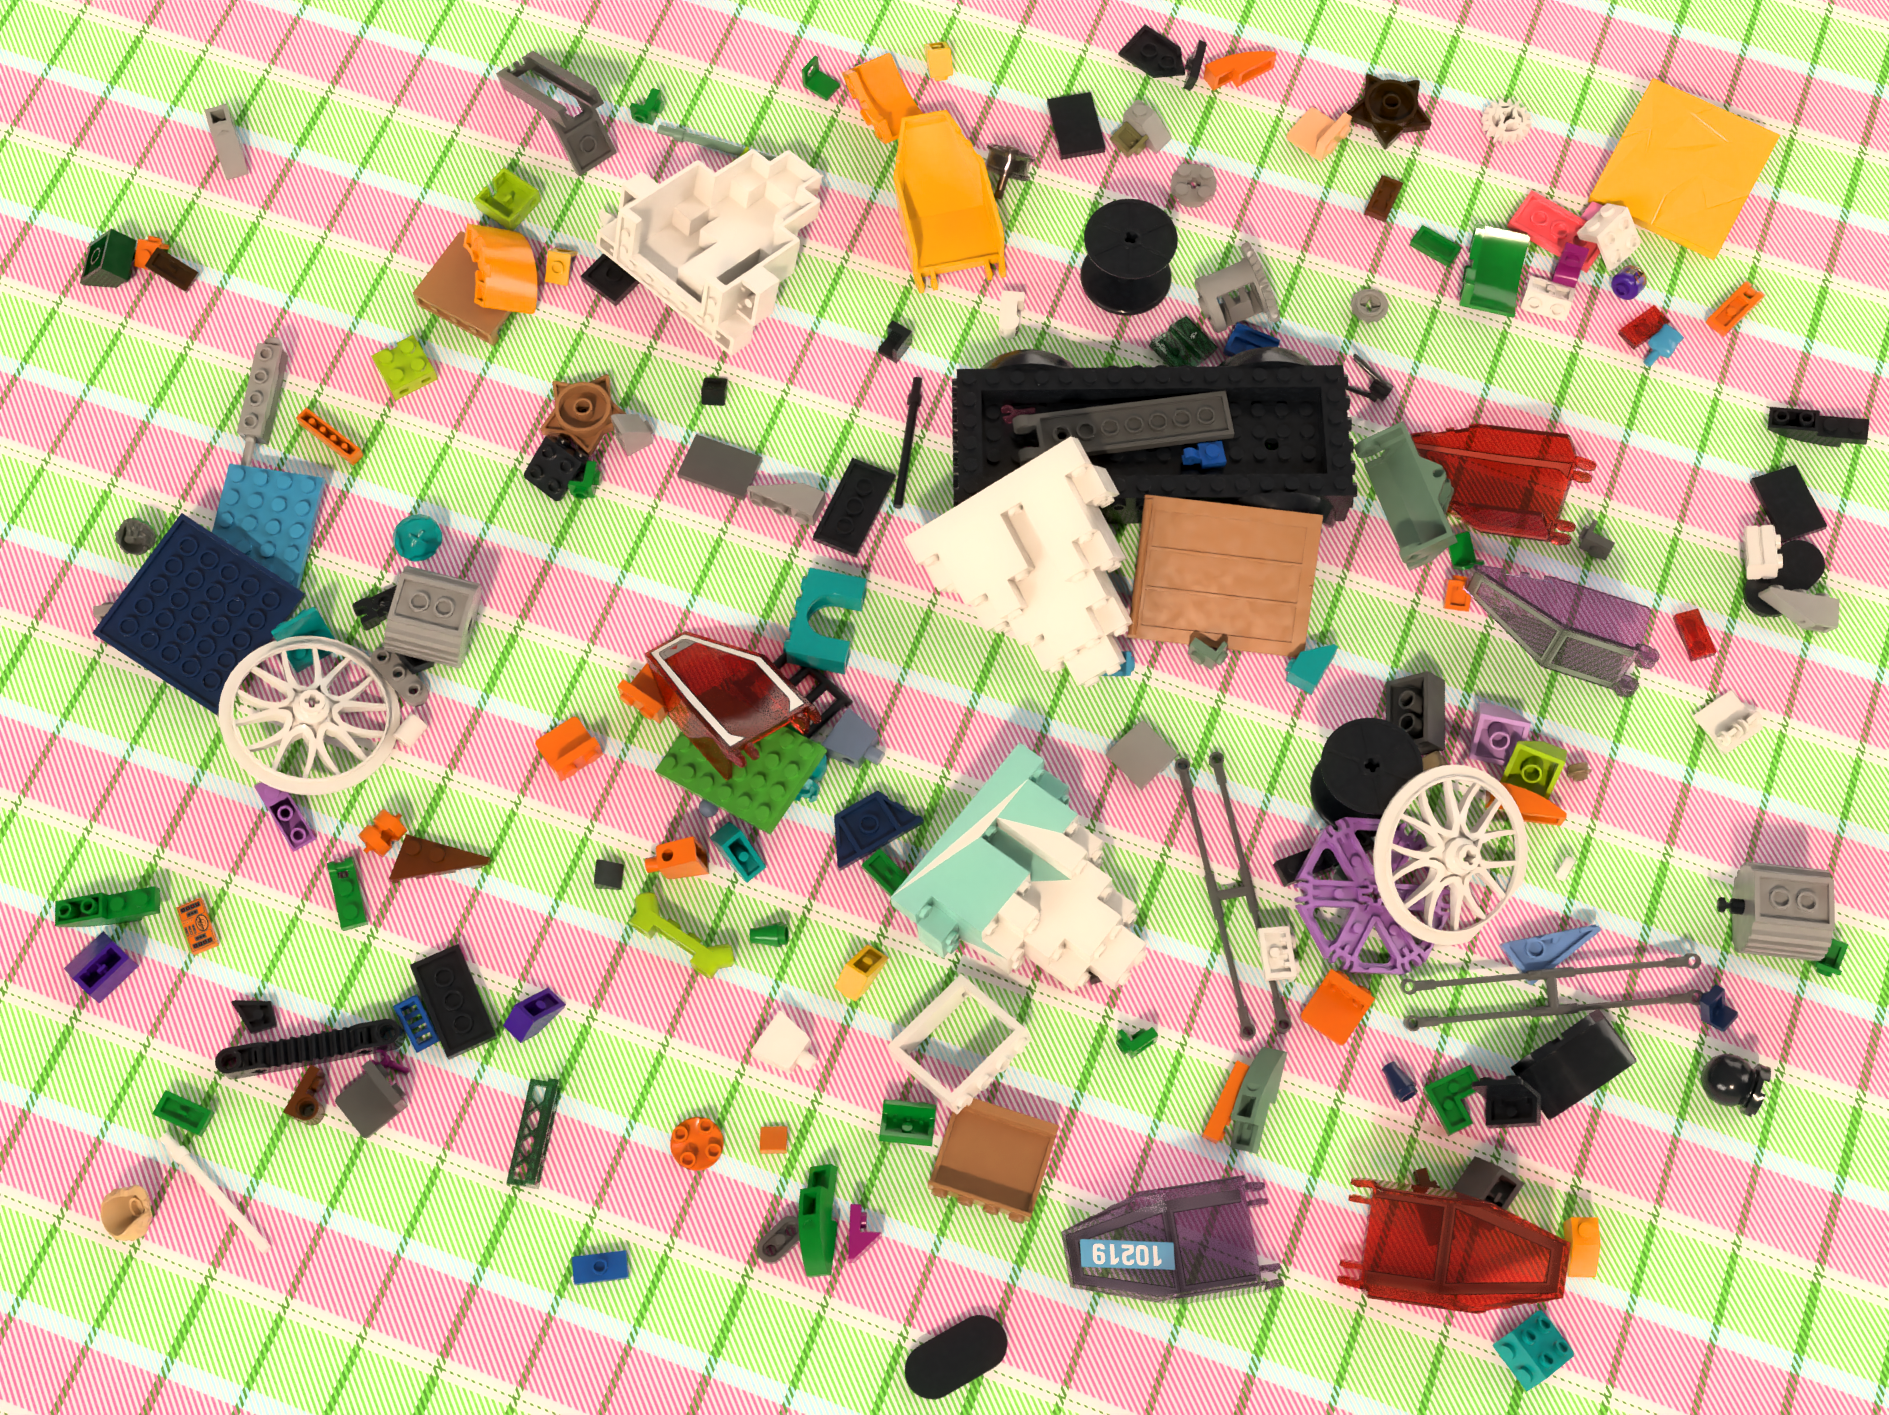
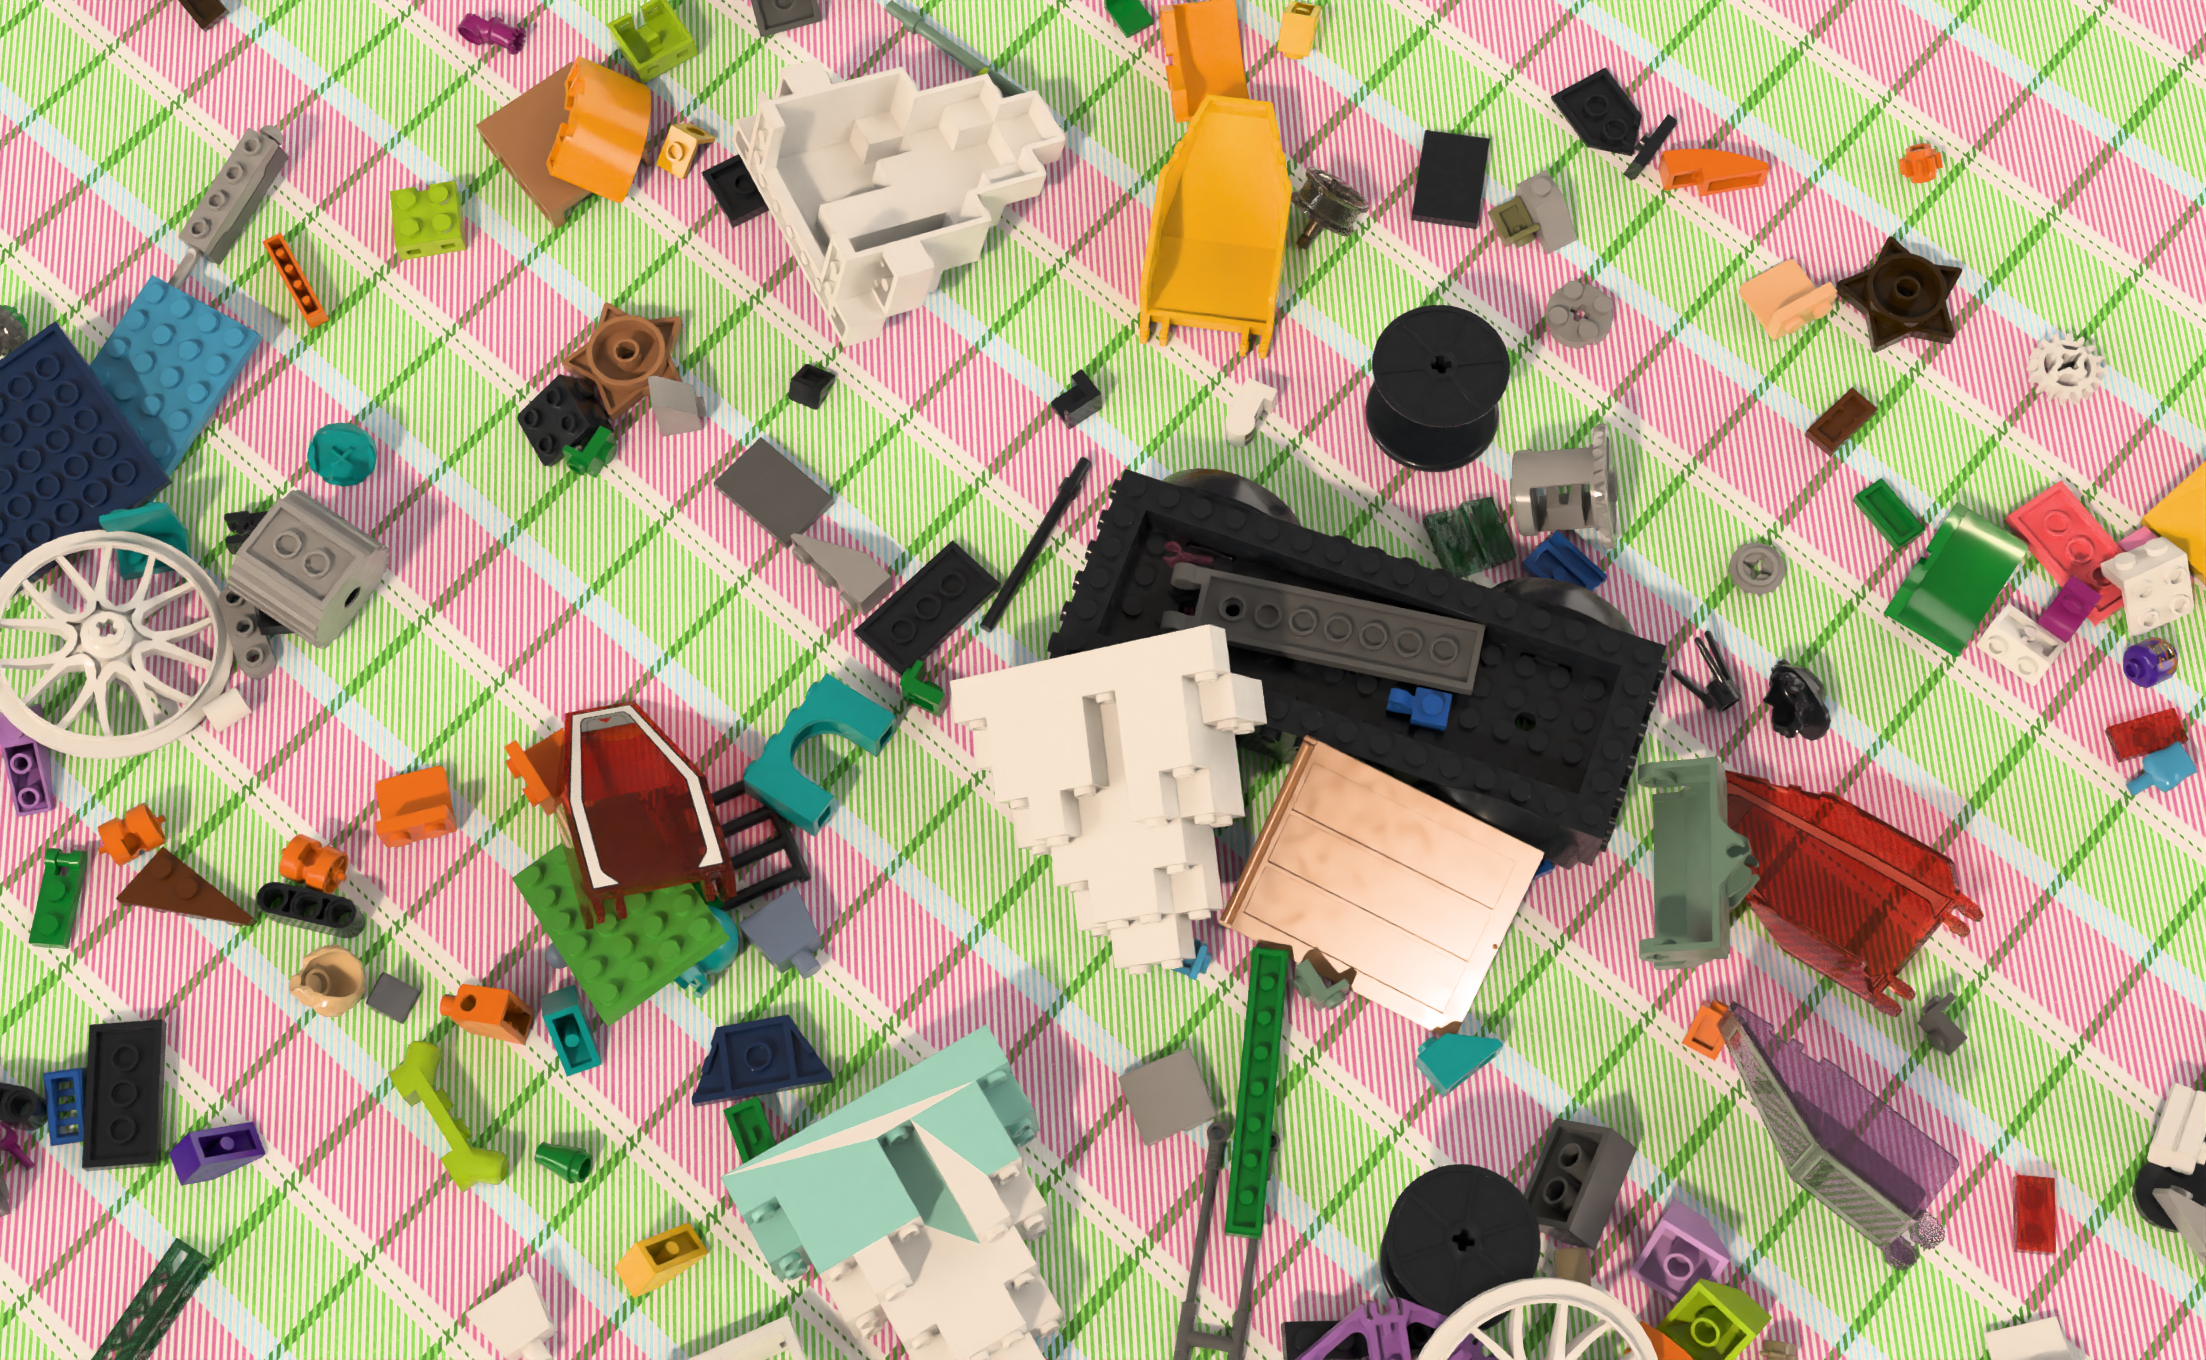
camera: 25 degrees right, 0 degrees up
(382, 231) = (491, 32): none -> magenta connector
(516, 833) = (296, 902): none -> black beam
(517, 808) = (310, 863): none -> orange wheel
(562, 877) = (329, 981): none -> tan hair
(875, 561) = (923, 695): none -> green bracket
(1197, 731) = (1256, 1094): none -> green tile
(1367, 22) = (1920, 163): none -> orange gear
(1429, 377) = (1797, 702): none -> black hair
(1462, 552) = (1742, 972): green bracket -> none

